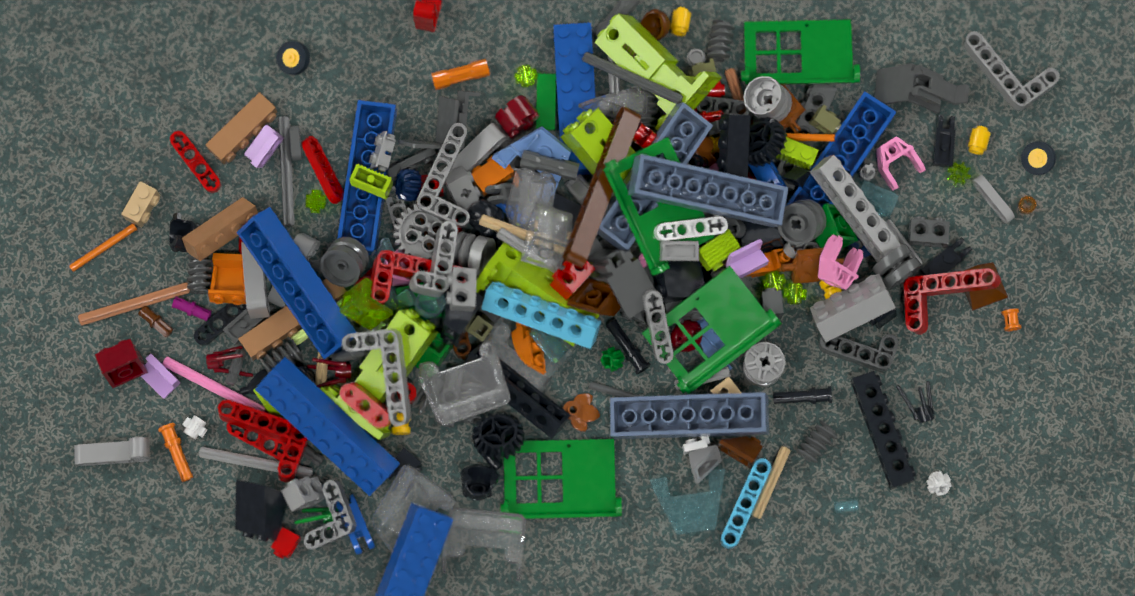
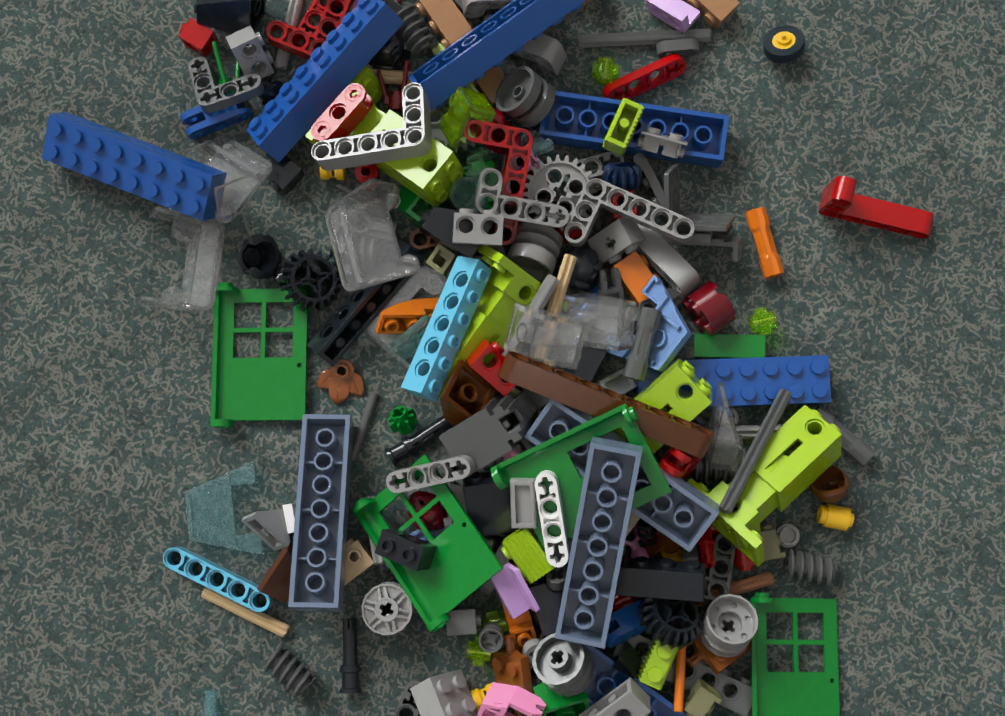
camera: 90 degrees right, 5 degrees up
(335, 474) = (271, 90): none -> black gear
(717, 345) = (405, 549): none -> black brick
(787, 278) = (492, 642): none -> dark grey wheel

